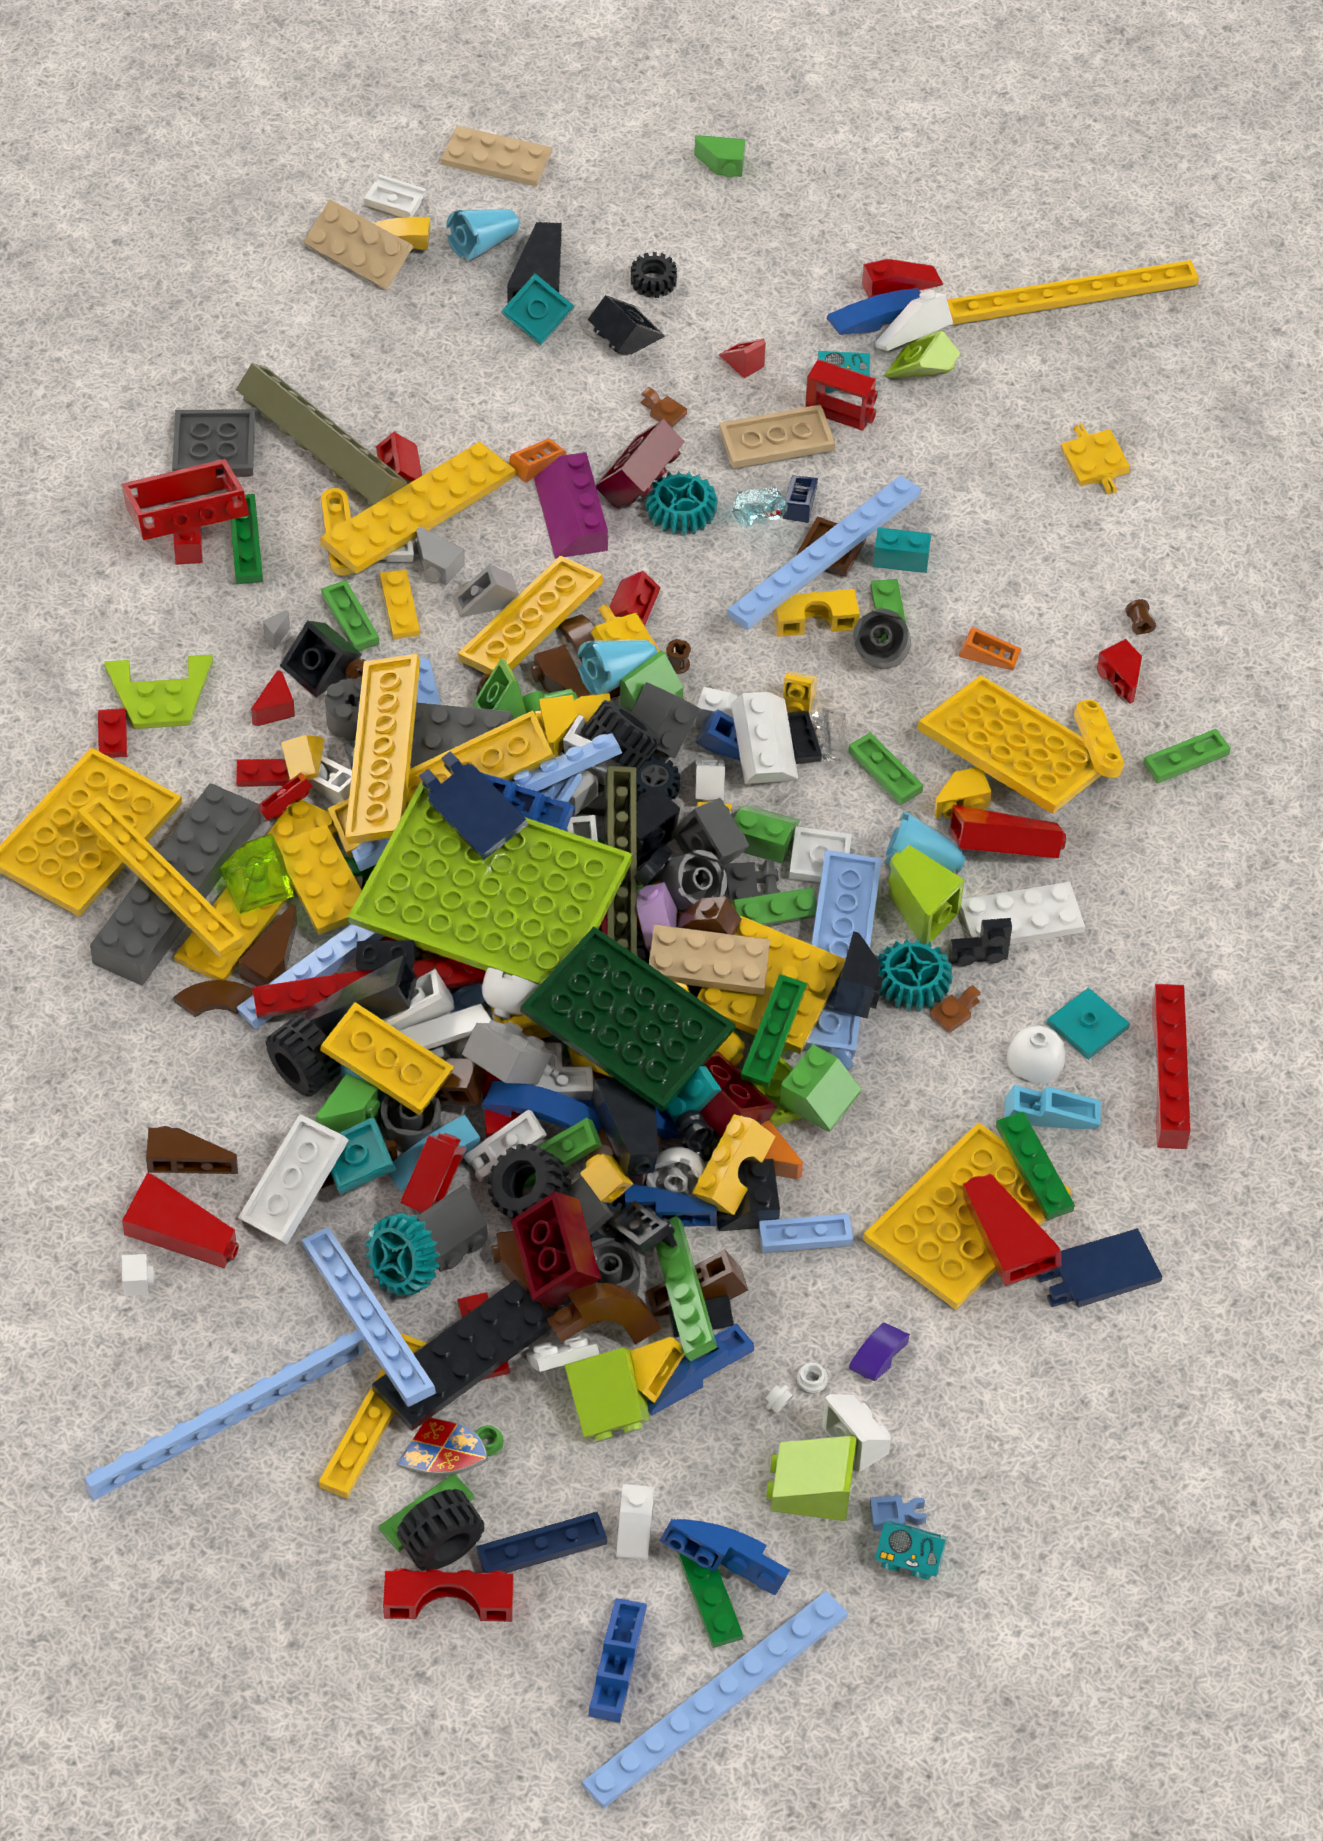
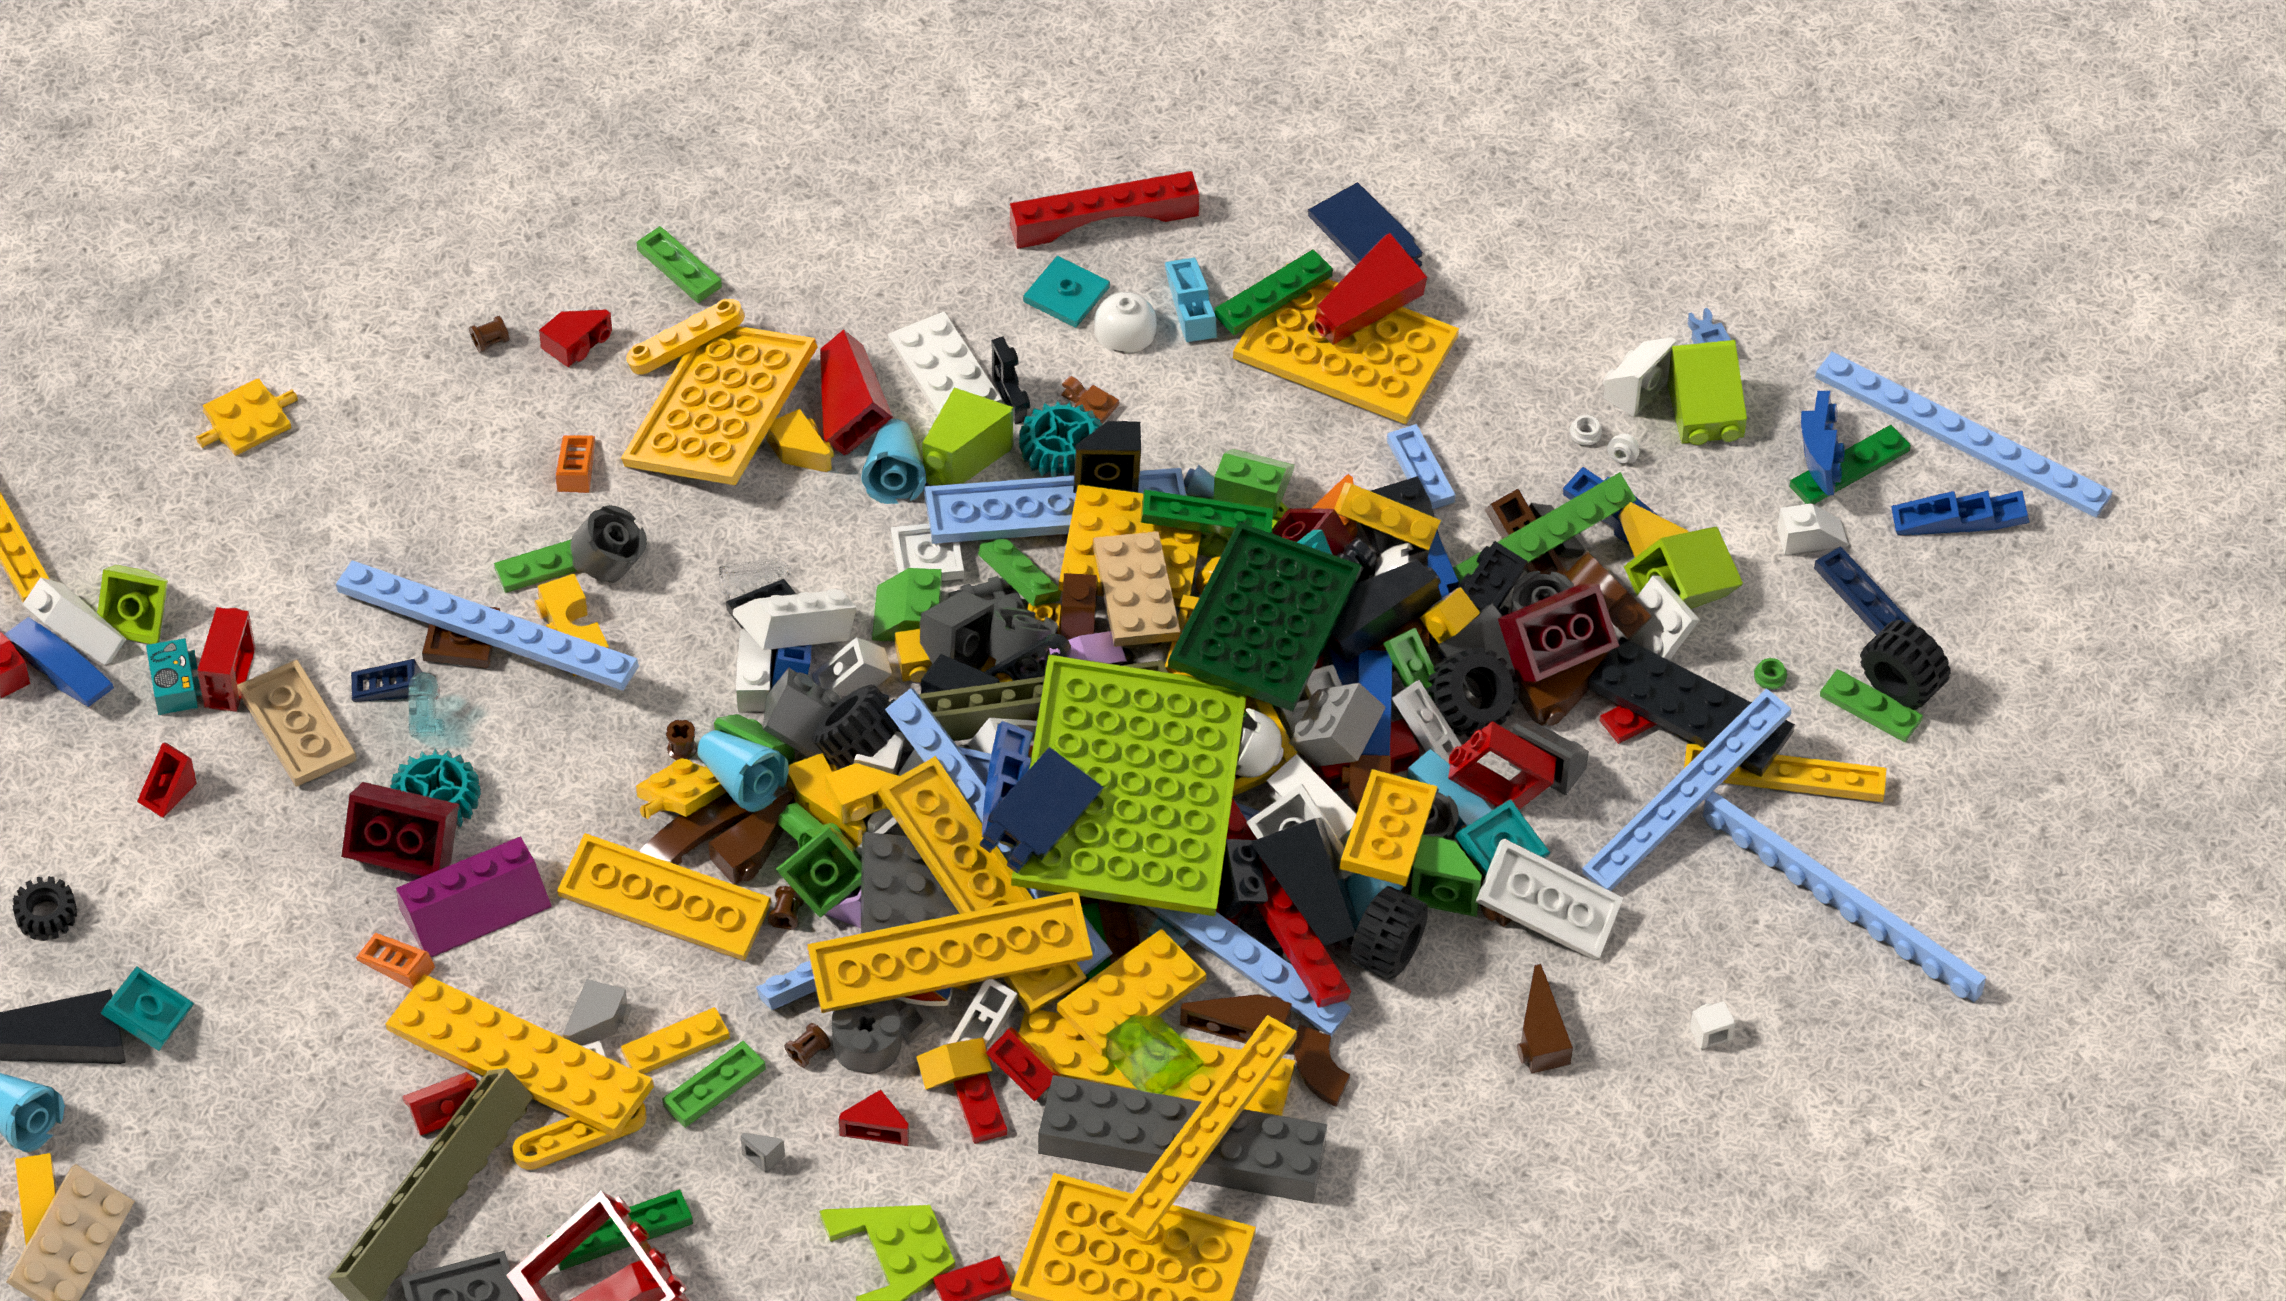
camera: 105 degrees left, 0 degrees up
(178, 1224) = (1633, 1008): red slope -> none
(318, 657) = (794, 1092): black slope -> none
(402, 1254) = (1604, 777): teal gear -> none
(410, 1591) = (1970, 689): red arch -> none
(443, 1449) = (1809, 692): shield -> none
(486, 592) = (640, 952): light grey slope -> none
(623, 326) = (149, 915): black slope -> none
(635, 595) = (602, 810): red panel -> none
(664, 409) = (276, 846): dark orange plate -> none
(799, 691) = (705, 608): yellow slope -> none
(878, 1350) = (1539, 379): dark purple slope -> none
(885, 768) = (782, 520): bright green plate -> none
(902, 550) = (454, 560): teal brick -> none
(911, 1549) = (1749, 309): teal brick -> none

